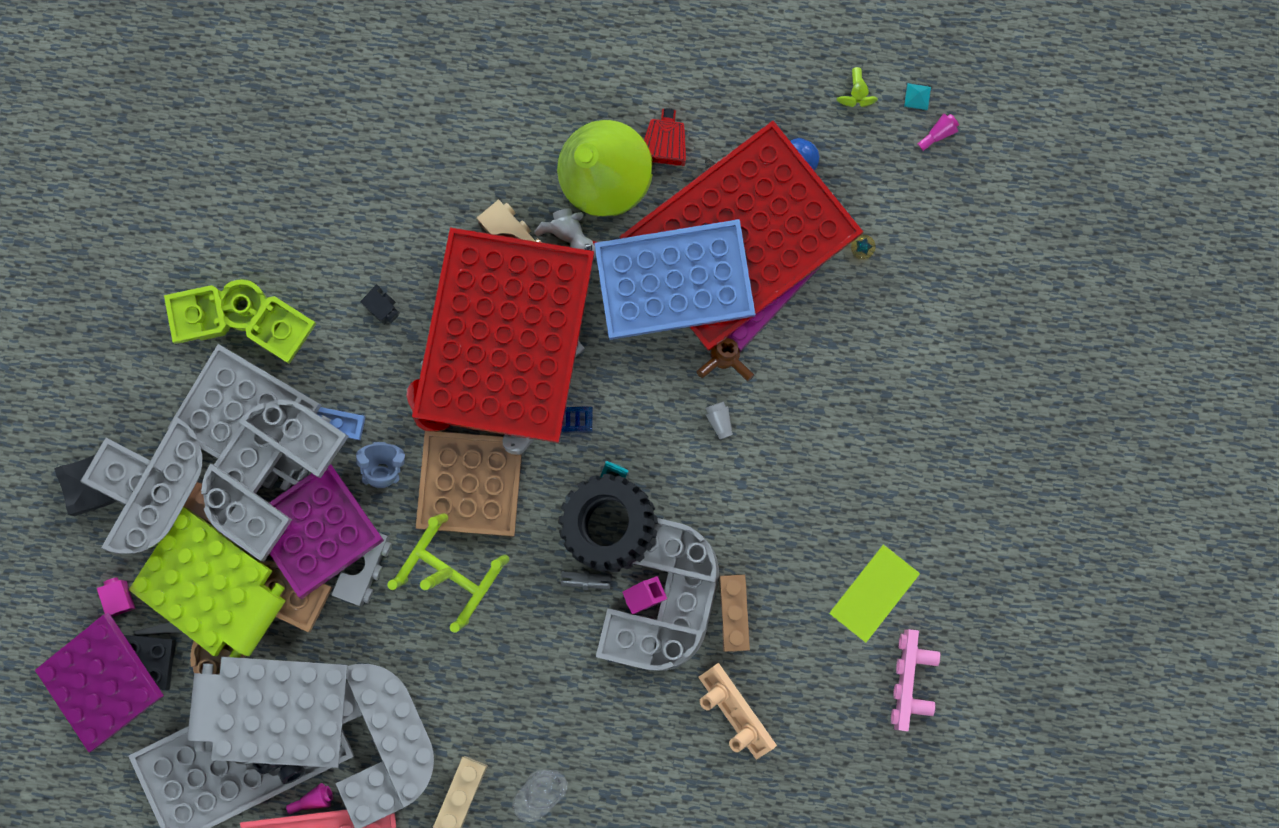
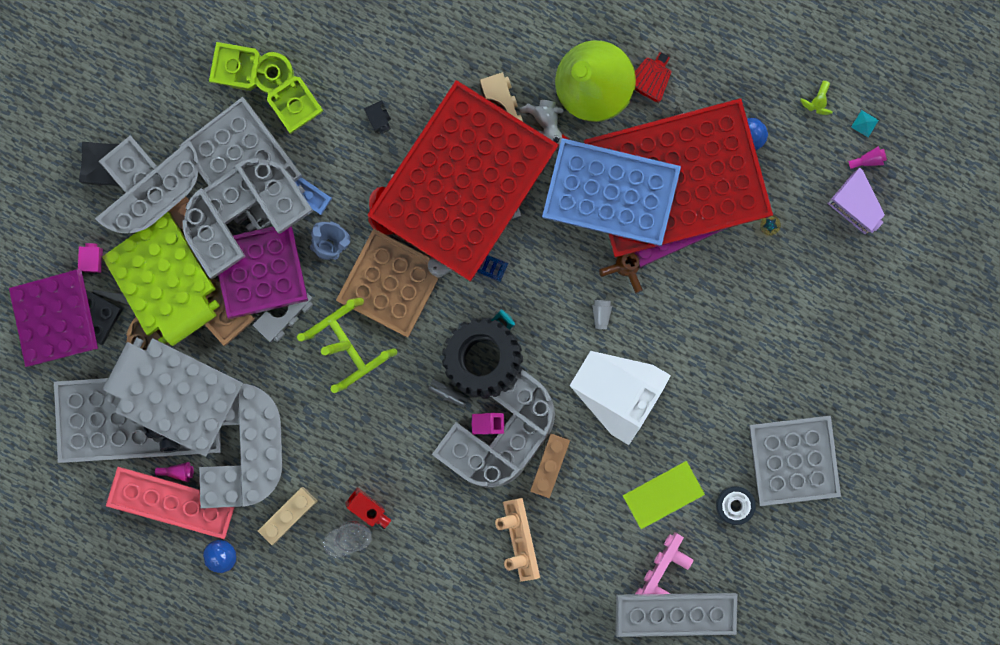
camera: 30 degrees right, 5 degrees up
(538, 747) = (360, 503): none -> red torso
(776, 498) = (619, 391): none -> white wedge
(947, 722) = (676, 614): none -> light grey tile
(950, 182) = (858, 203): none -> lavender slope
(973, 566) = (724, 501): none -> wheel
(1003, 493) = (794, 460): none -> light grey plate

